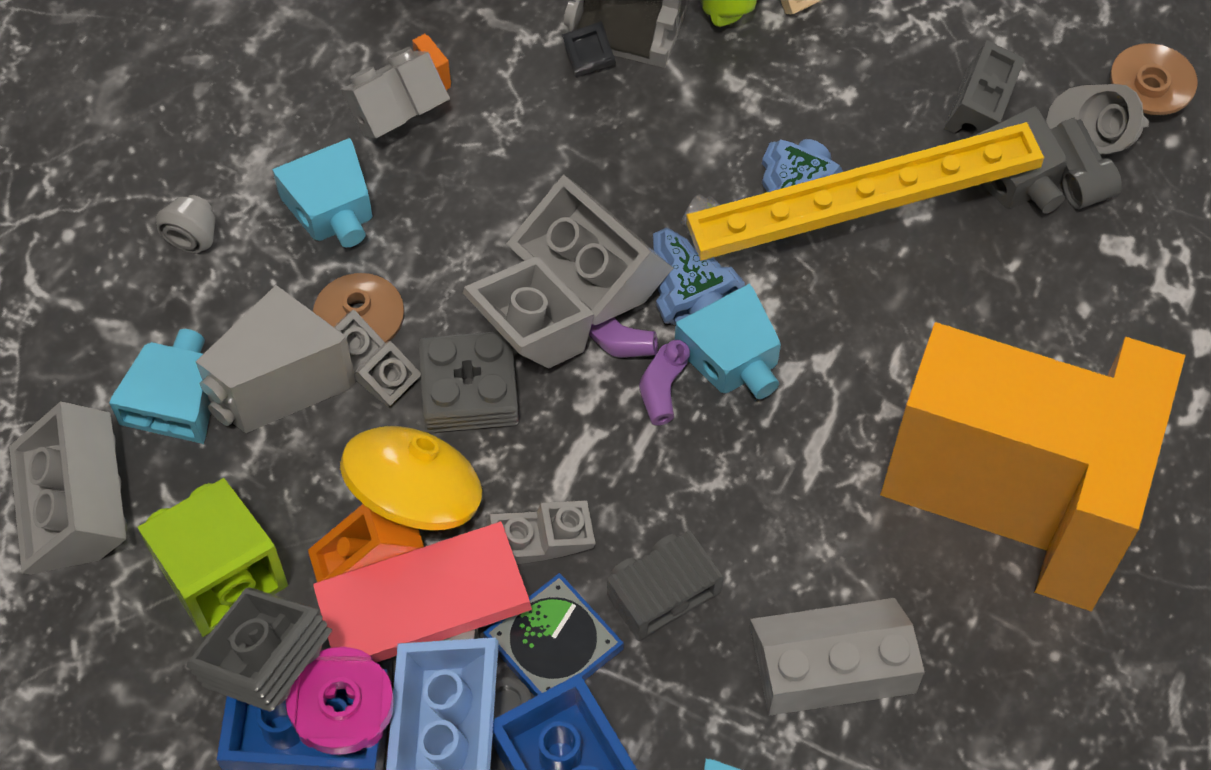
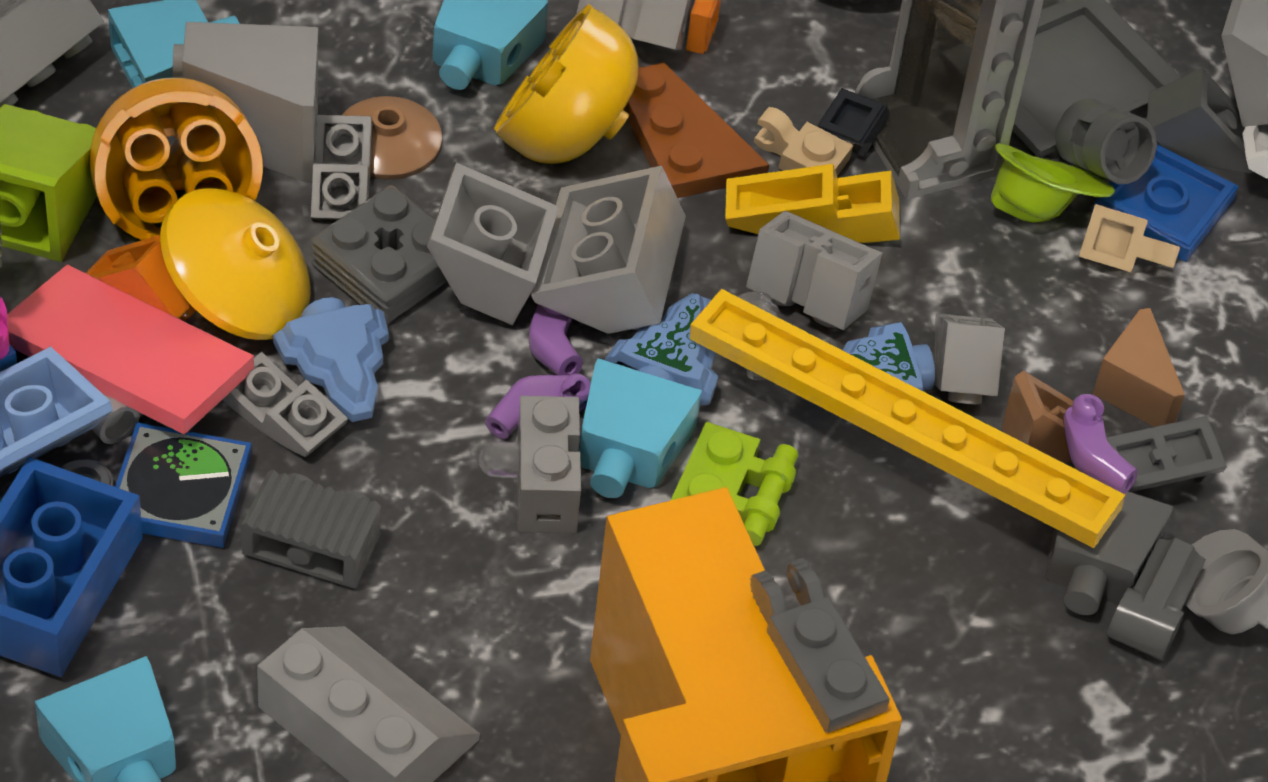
camera: 45 degrees right, 10 degrees down
(271, 442) = (140, 171): none -> light orange cylinder
(436, 179) = (573, 92): none -> yellow cylinder
(510, 146) = (686, 135): none -> dark orange wing
(530, 469) = (338, 351): none -> medium blue rock
(588, 89) = (800, 148): none -> tan plate
(639, 117) = (852, 206): none -> yellow slope
(700, 154) = (814, 269): none -> light grey piece
(723, 413) = (543, 462): none -> light grey piece
(803, 327) = (730, 461): none -> lime plate
(828, 118) = (967, 357): none -> light grey slope
(909, 126) = (1037, 416): none -> medium nougat slope
(911, 48) = (1140, 374): none -> medium nougat slope
(966, 114) = (1089, 447): none -> medium lavender arm
(1106, 361) = (819, 649): none -> dark grey hinge

